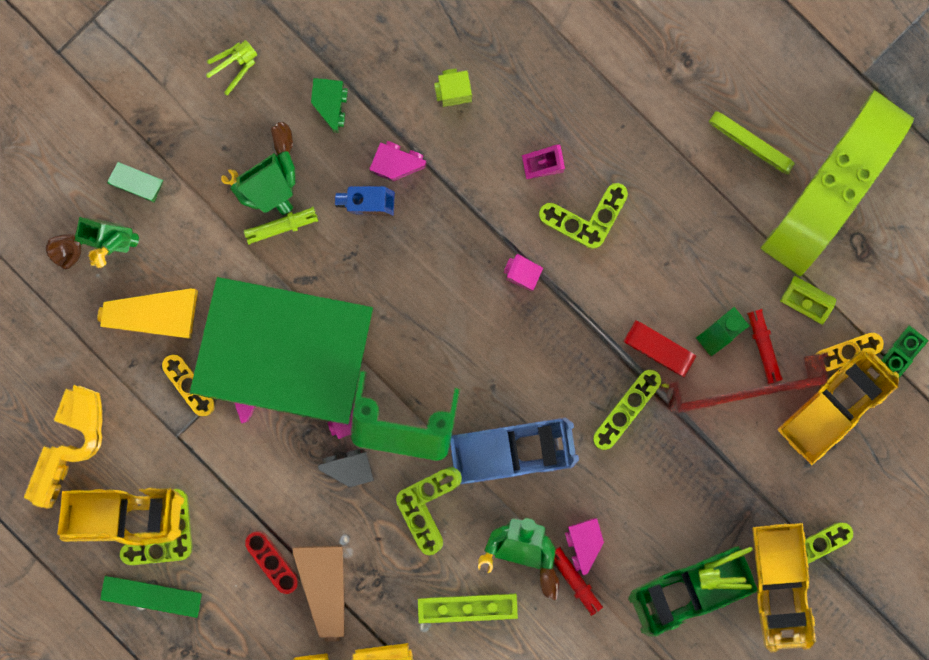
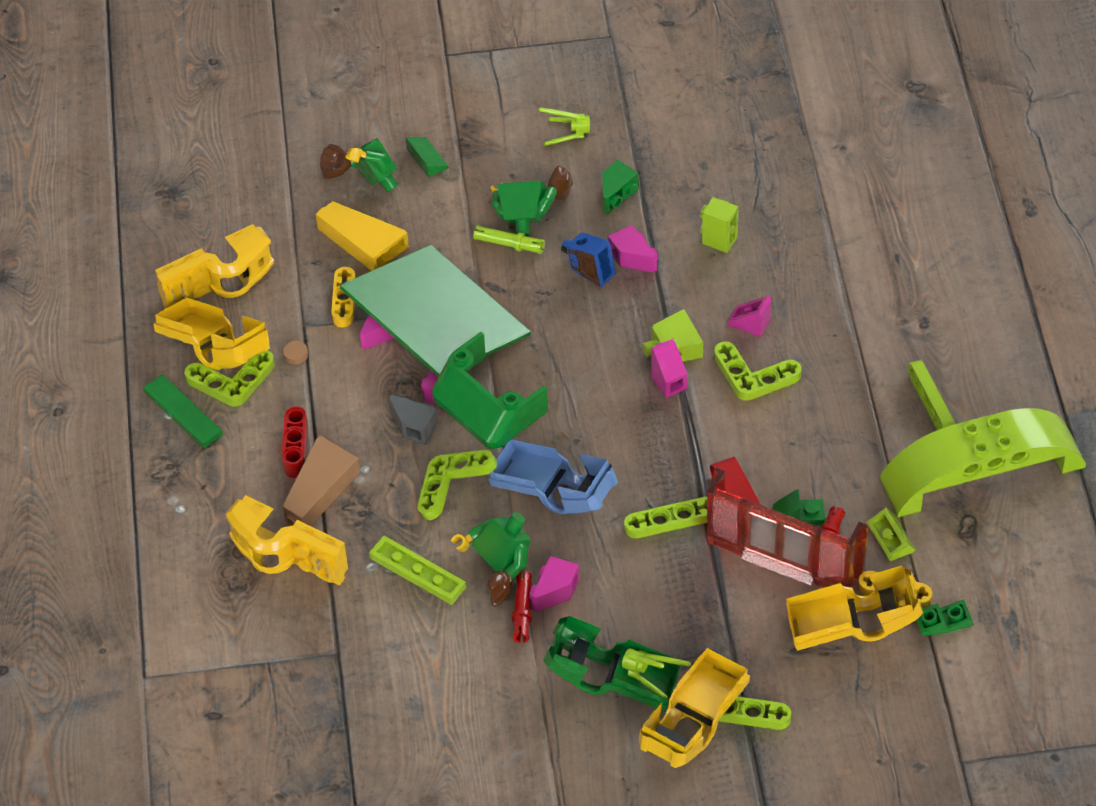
camera: 40 degrees right, 35 degrees down
(195, 471) = (295, 352): none -> medium nougat tile
(501, 233) = (682, 331): none -> lime torso

